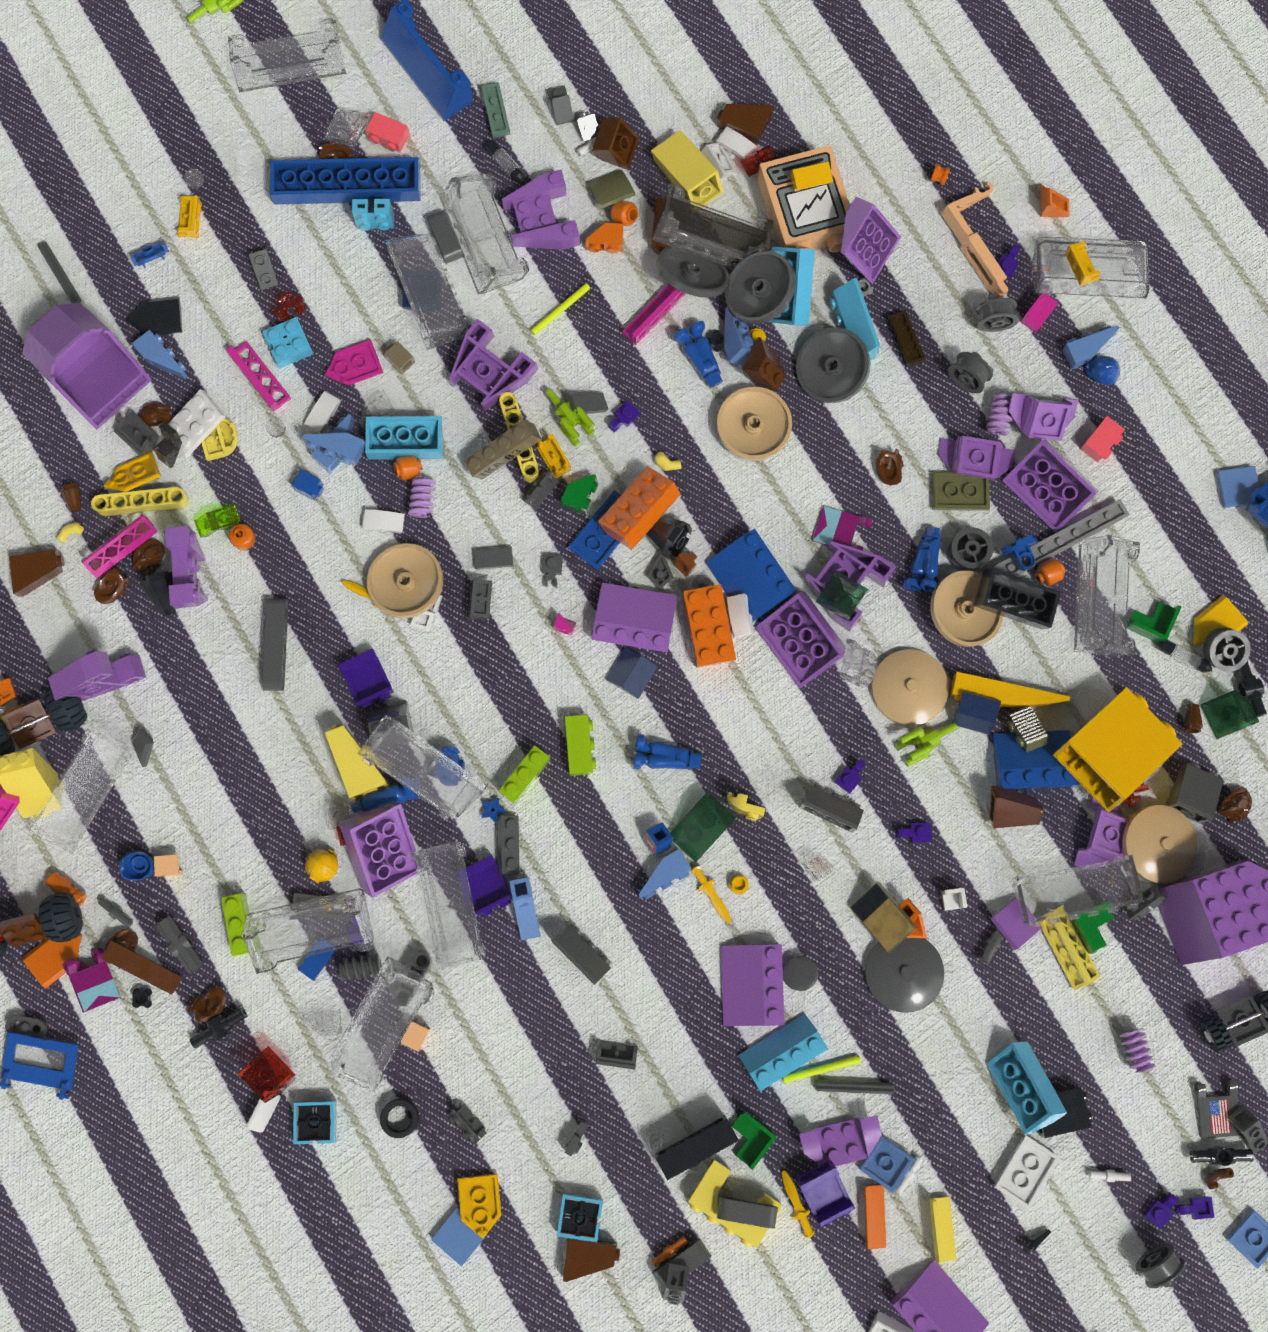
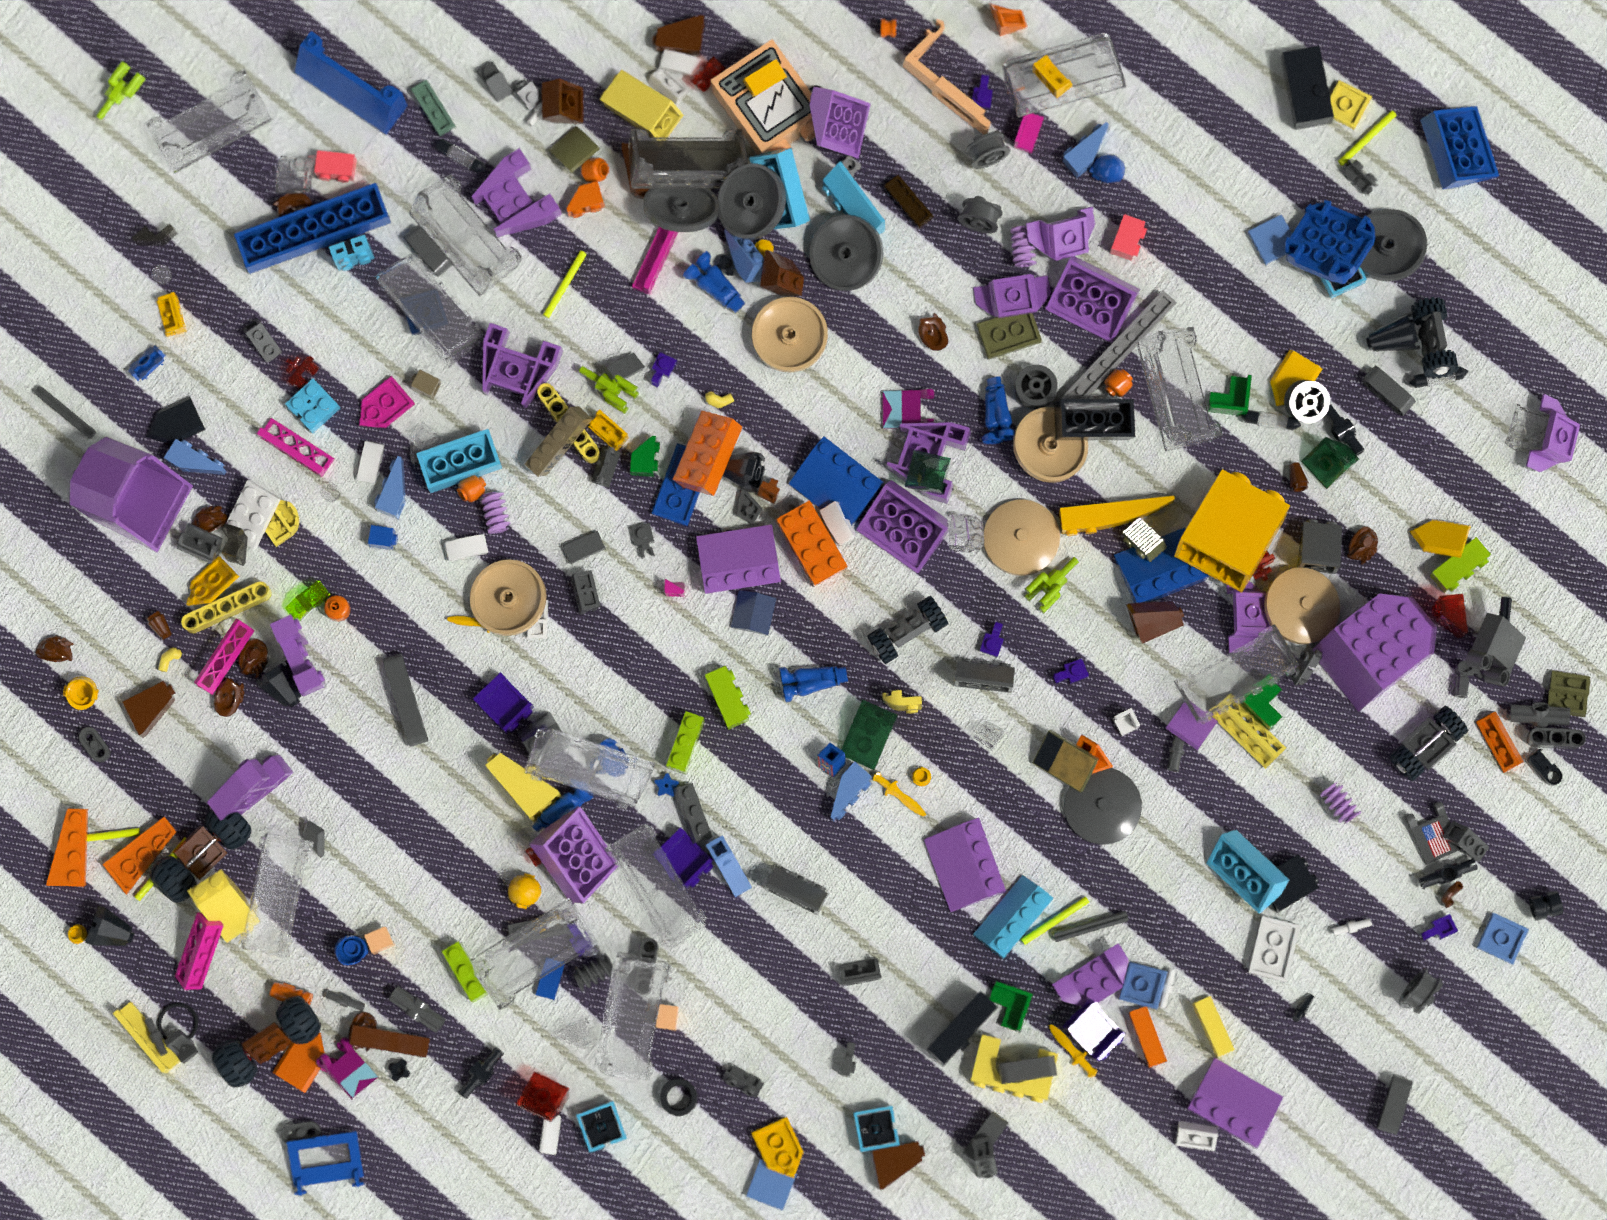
camera: 10 degrees left, 0 degrees up
(205, 145) = (147, 238): none -> clear smoke slope
(209, 1005) = (464, 1054): reddish brown hat -> none
(341, 445) = (404, 489): medium blue slope -> none
(669, 1251) = (969, 1132): orange bar -> none
(772, 738) = (907, 628): none -> plate
(800, 973) = (1005, 839): dark grey piece -> none
(976, 712) = (1091, 540): dark blue slope -> none
(1020, 549) = (1082, 371): blue tile -> none
(1159, 1211) = (1407, 943): dark purple plate -> none

